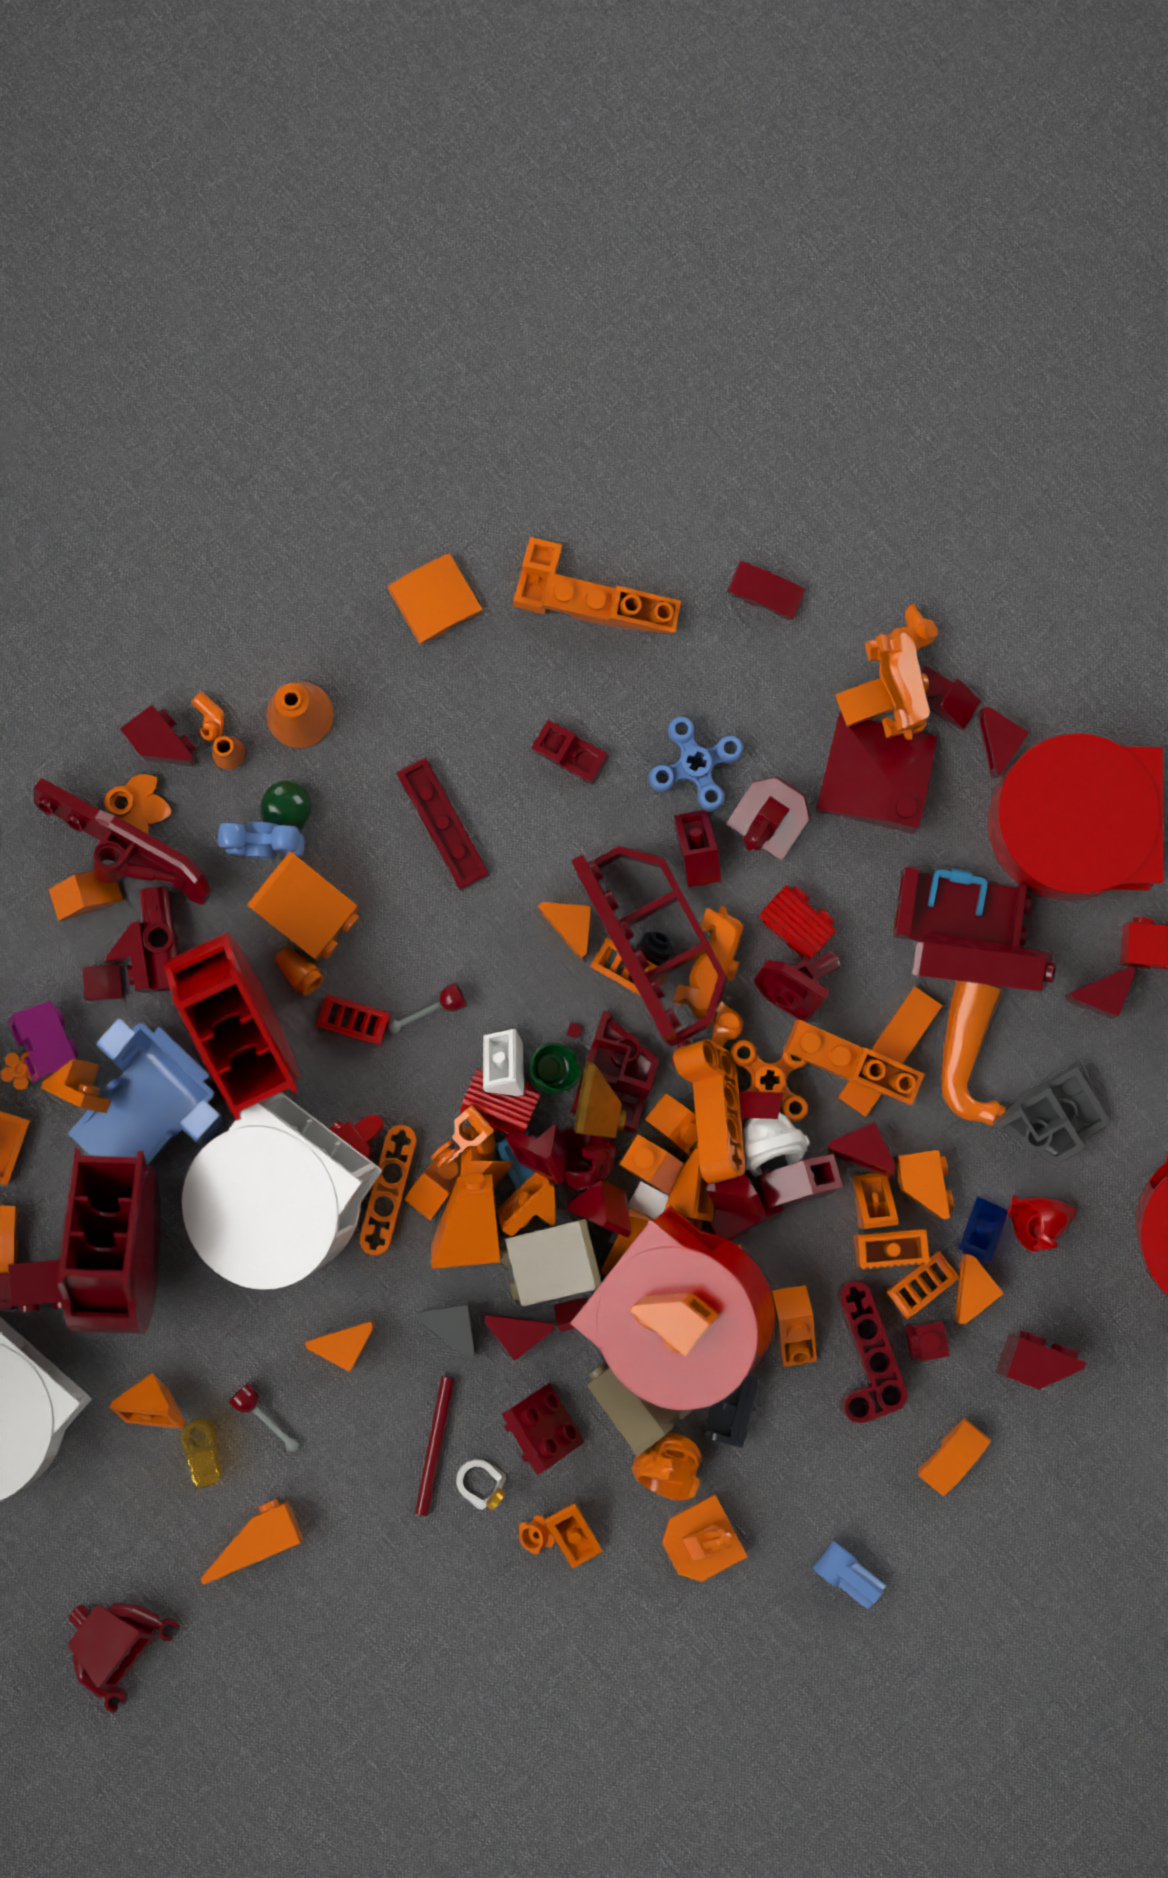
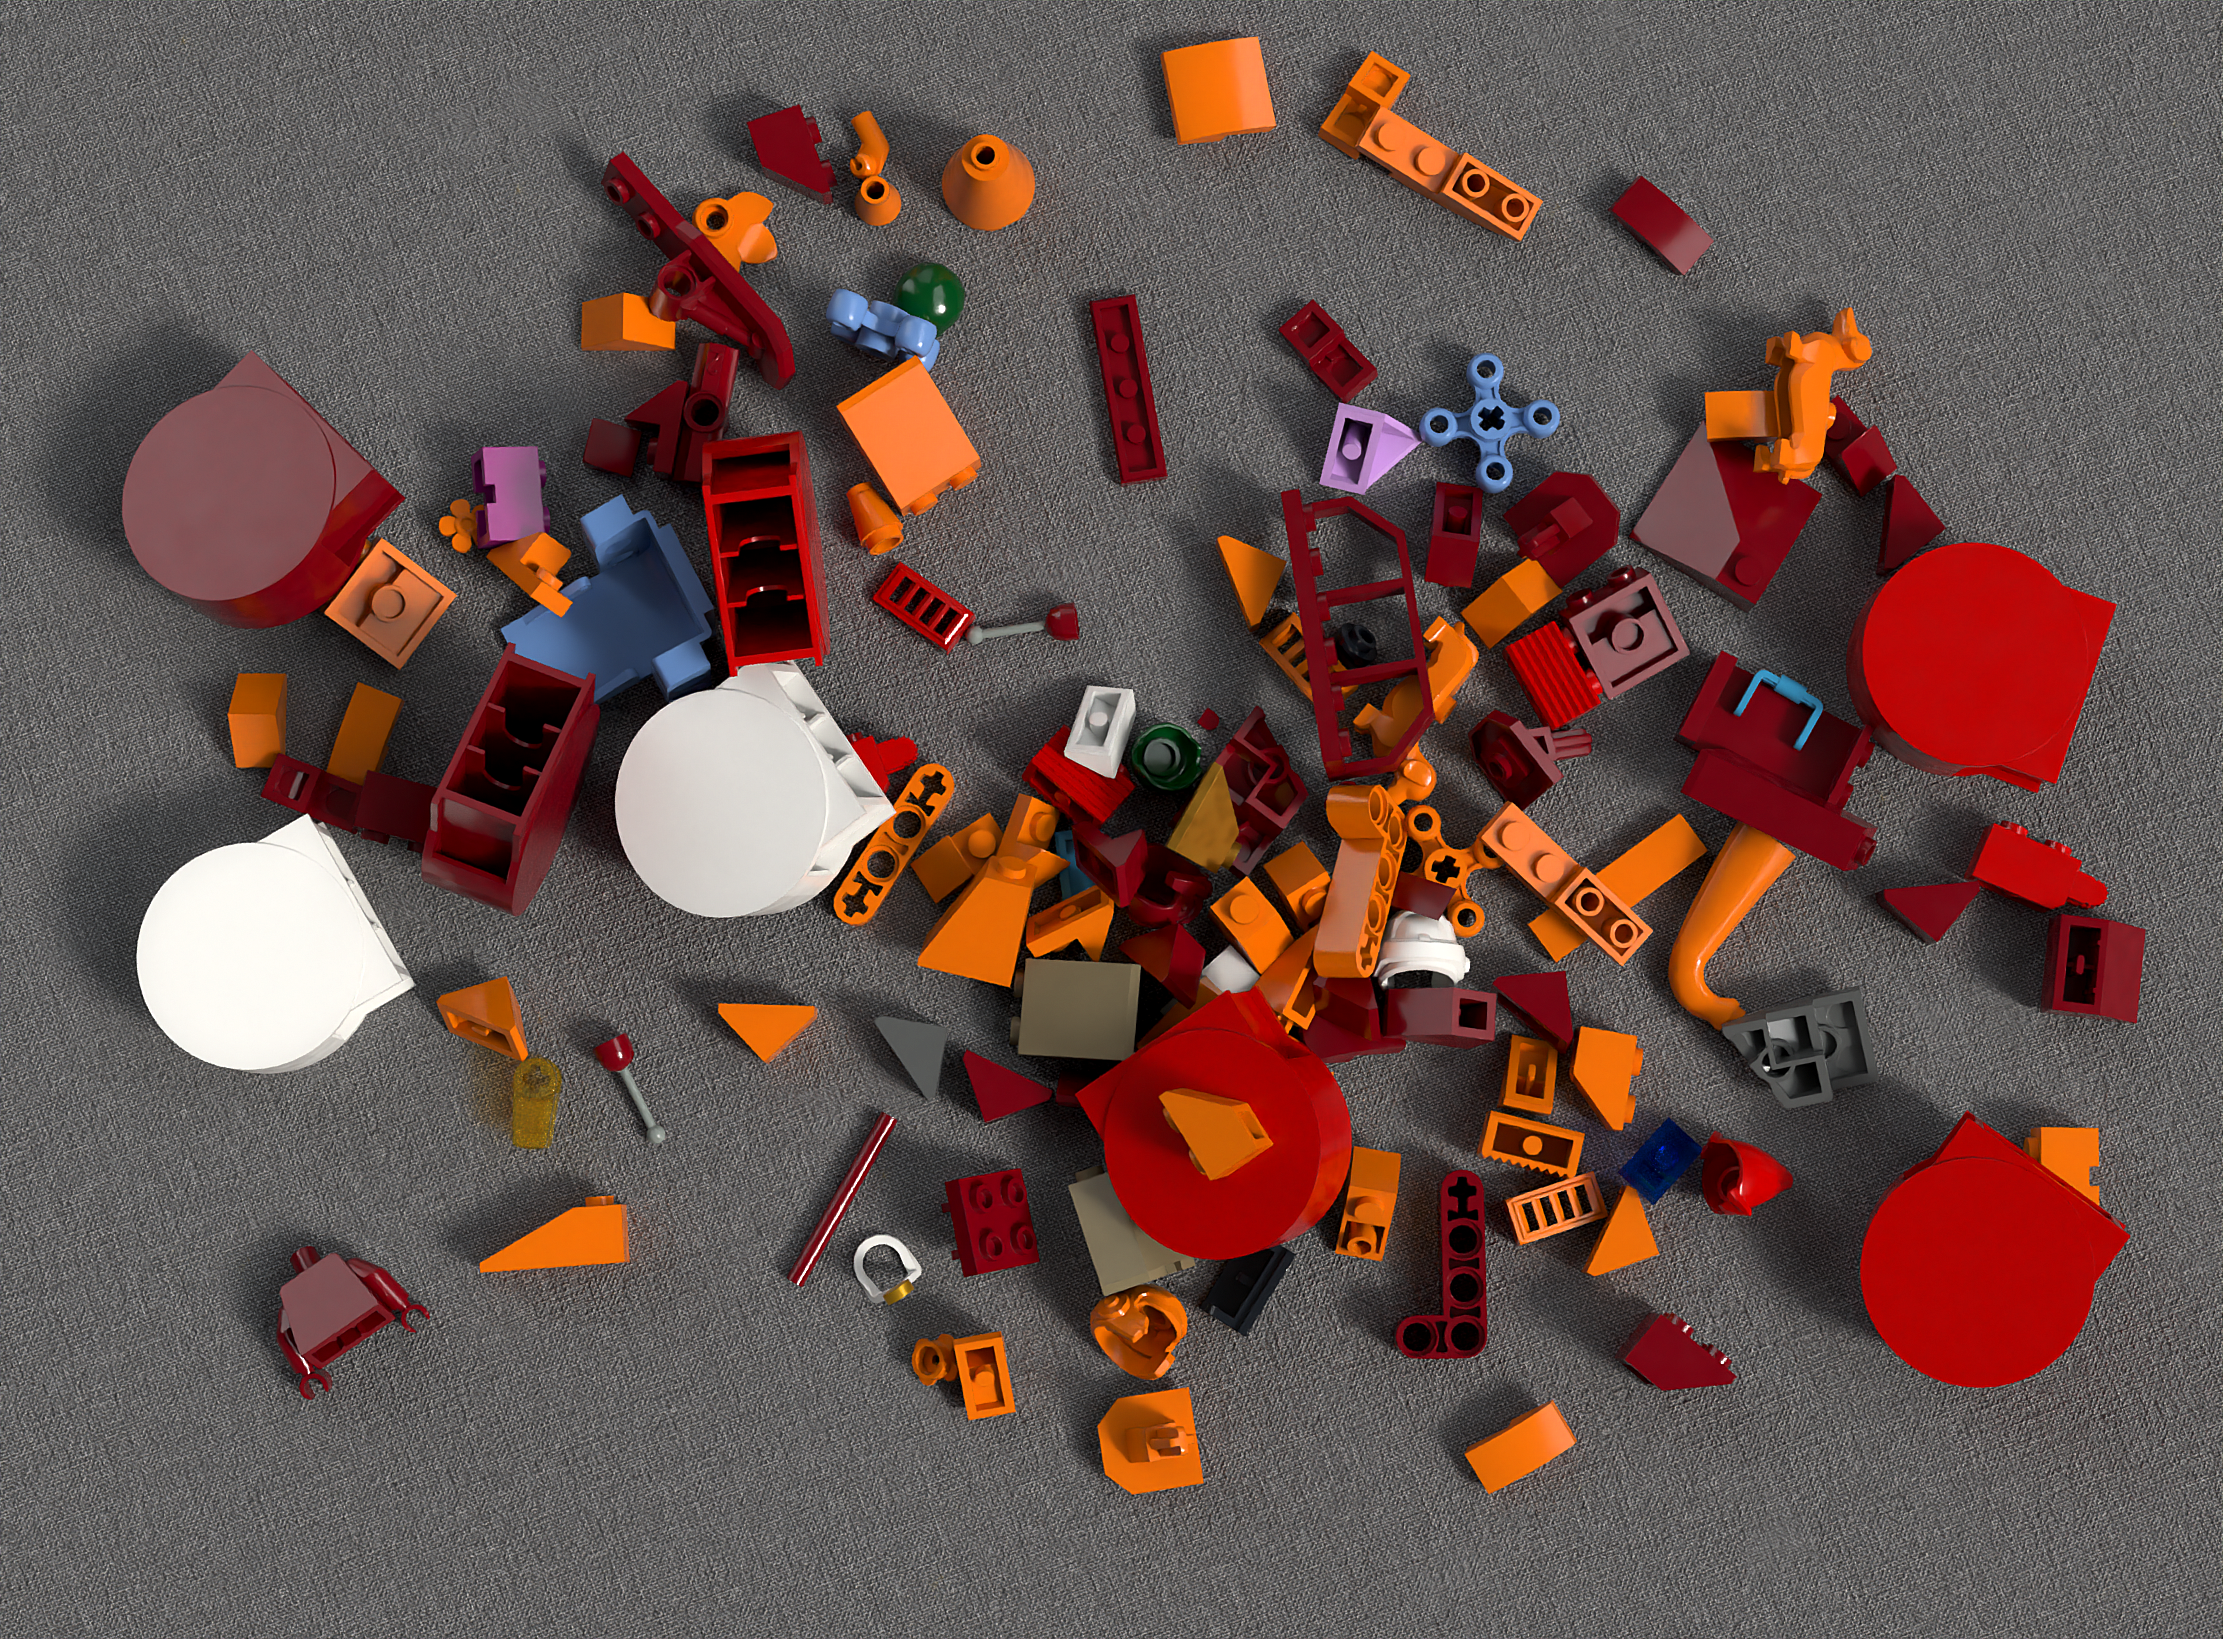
camera: 20 degrees right, 0 degrees up
(471, 1114) = (985, 818): orange piece -> none
(616, 810) = (1364, 448): none -> lavender slope
(751, 881) = (1510, 602): none -> orange slope
(835, 874) = (1624, 630): none -> plate
(843, 1570) = (1324, 1546): medium blue piece -> none
(927, 1340) = (1536, 1282): dark red brick -> none

